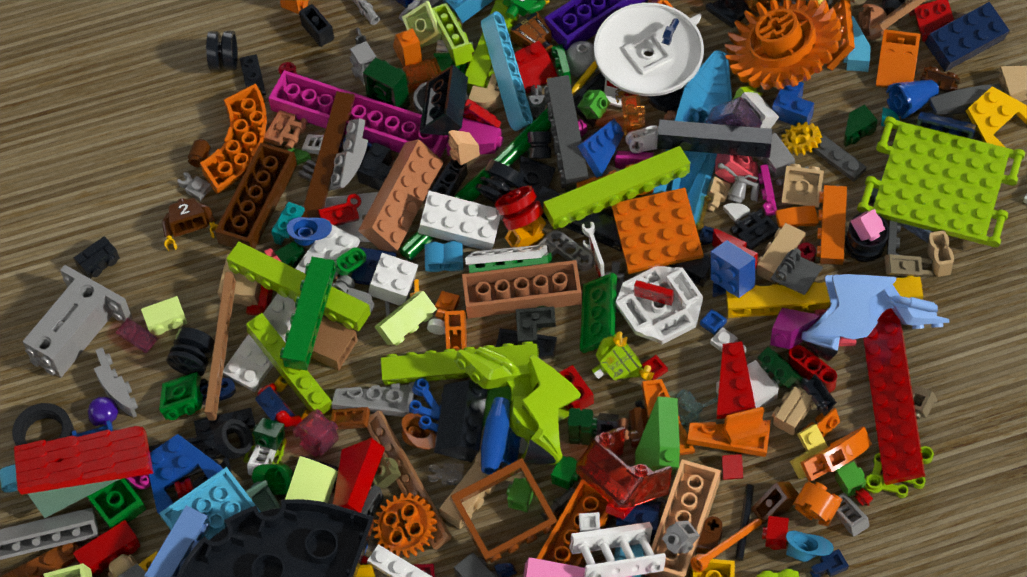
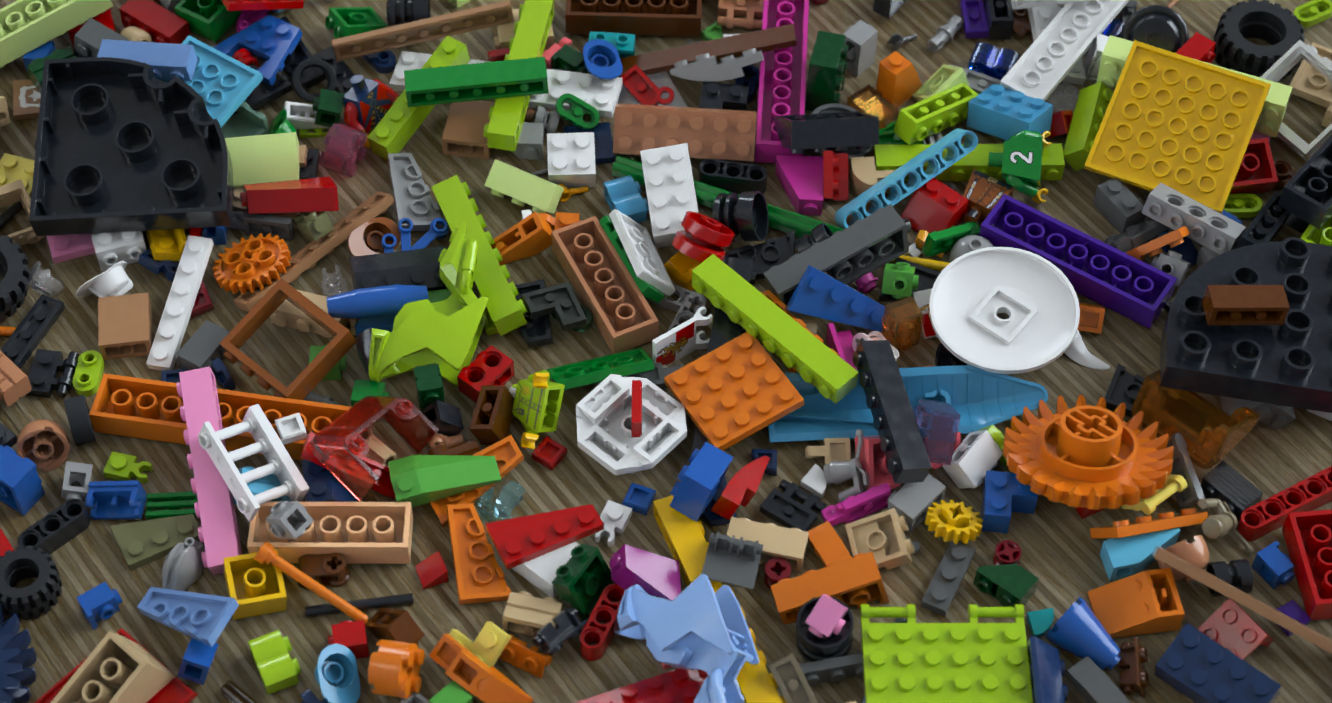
camera: 65 degrees right, 5 degrees down
(351, 417) = (377, 177): dark orange plate -> none
(463, 146) = (770, 162): light nougat slope -> none
(615, 391) = (492, 414): none -> reddish brown brick
(669, 31) = (1026, 316): dark blue bar -> none
(700, 224) = (772, 443): clear yellow hinge -> none
(745, 426) = (485, 563): orange panel -> none
(835, 119) = (1008, 549): none -> dark red wheel

